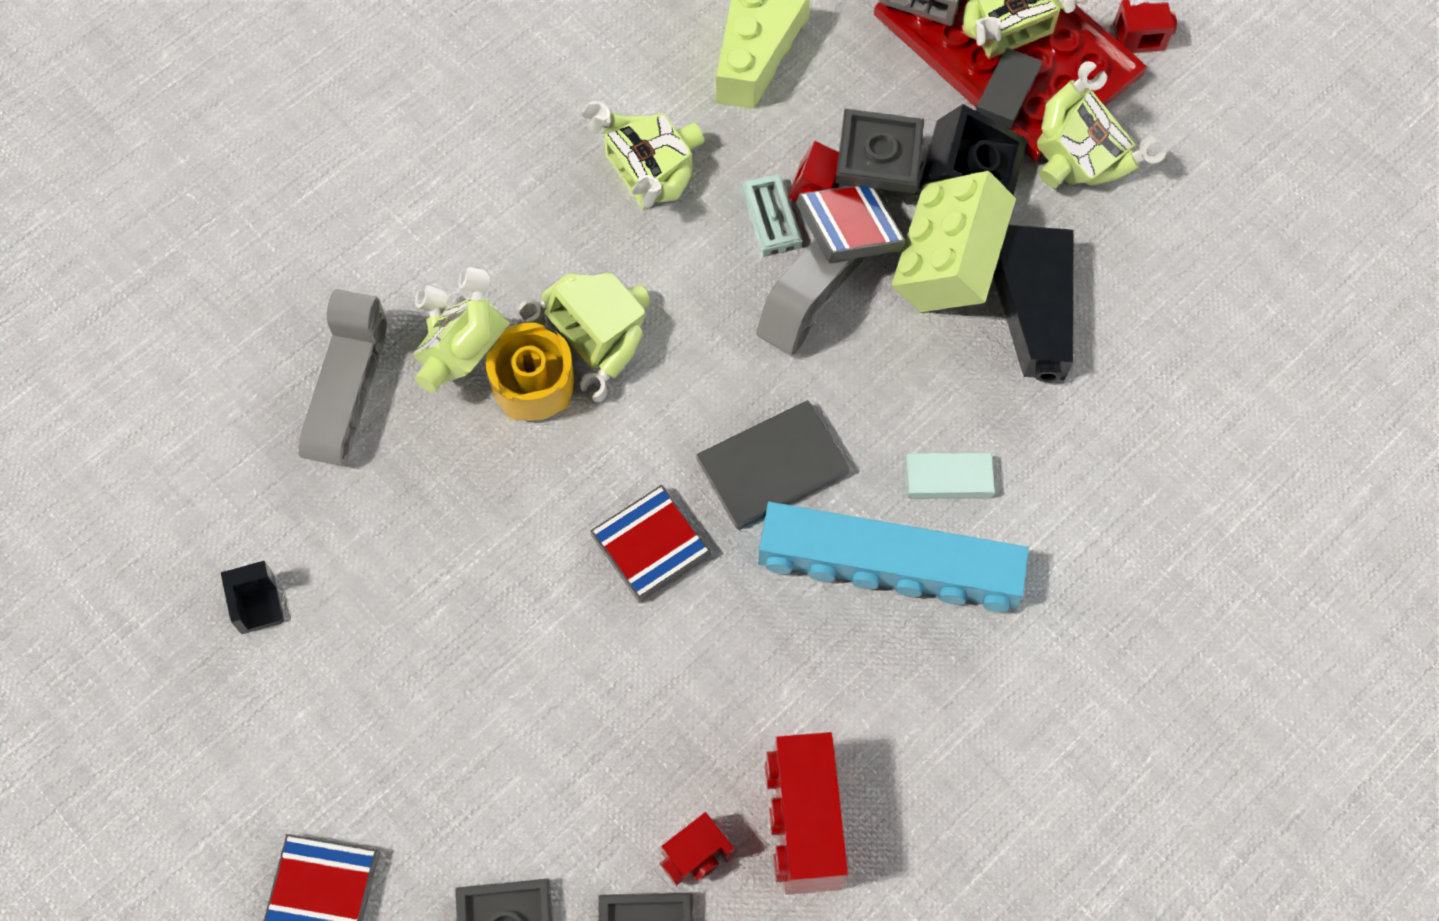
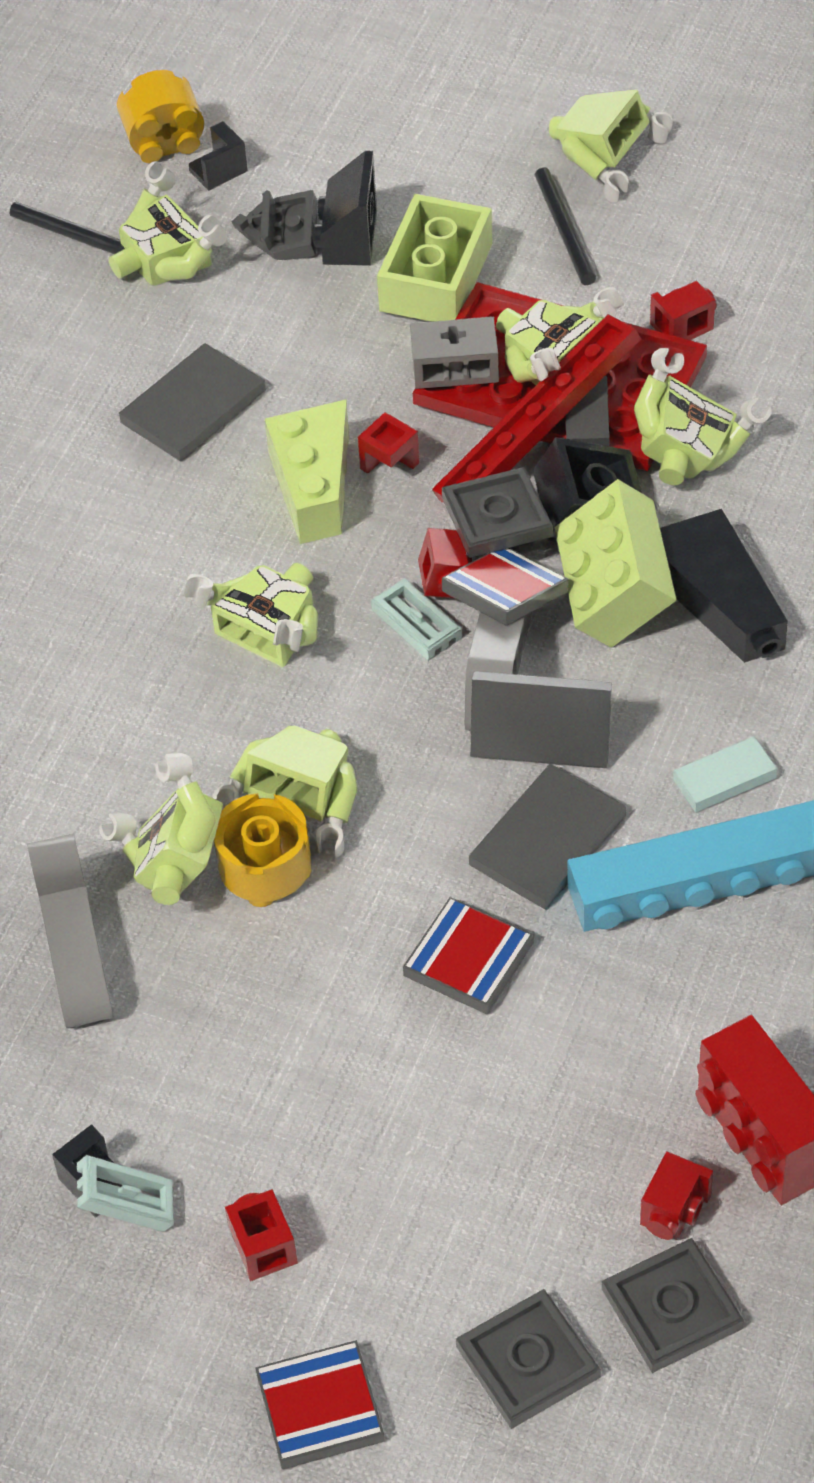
camera: 20 degrees left, 15 degrees down
(229, 616) = (126, 1201): none -> light aqua tile
(339, 703) = (261, 1234): none -> red brick
(815, 359) = (540, 719): none -> dark grey tile
(827, 44) = (388, 442): none -> red panel
(973, 67) = (545, 403): none -> red plate

